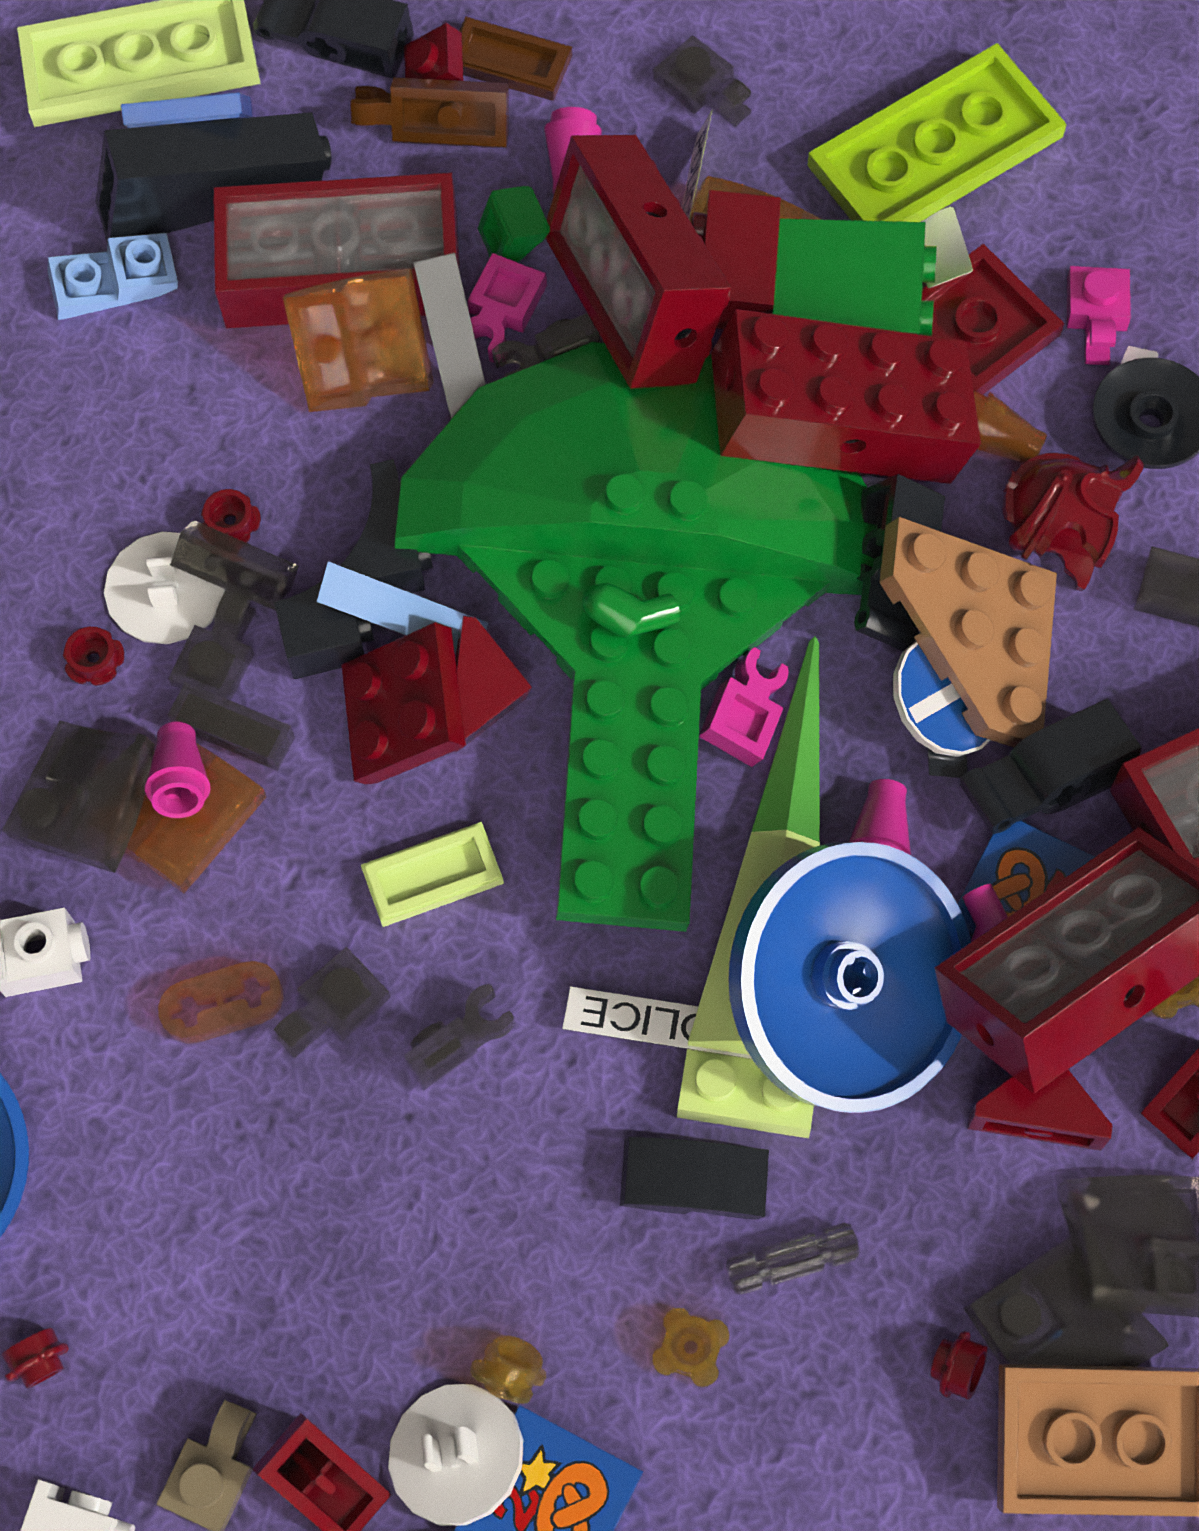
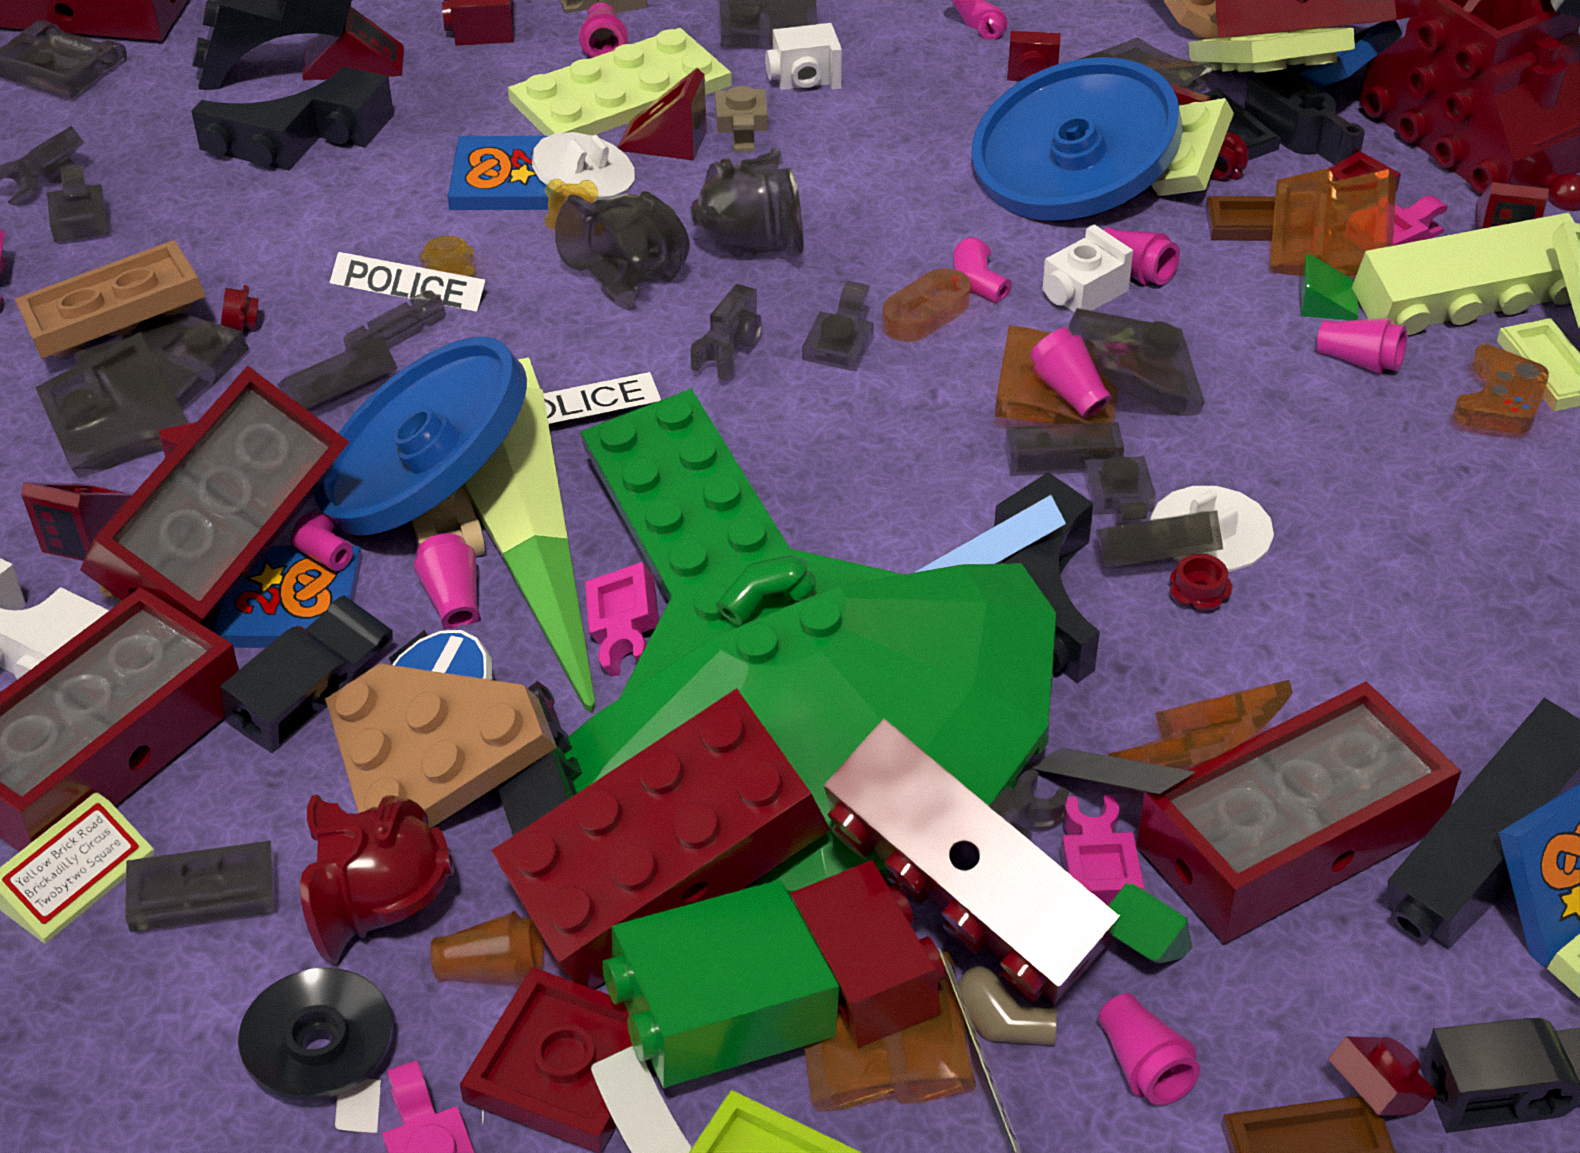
camera: 150 degrees right, 25 degrees down
(35, 1358) = (898, 111): dark red plate -> none
(87, 642) = (1221, 449): dark red plate -> none
(127, 273) = (1487, 727): light blue slope -> none
(137, 1034) = (971, 259): none -> dark pink arm
(331, 1214) = (751, 205): none -> clear smoke helmet
(403, 704) = (924, 487): dark red plate -> none
(432, 874) = (823, 430): yellowish green tile -> none
(437, 111) = (1353, 1013): reddish brown plate -> none
(486, 679) = (870, 529): dark red slope -> none
(487, 1225) = (622, 242): none -> clear smoke helmet
(694, 1177) = (518, 323): black slope -> none
(750, 1337) = (406, 280): none -> white sticker
(888, 1185) = (339, 374): none -> clear smoke piece

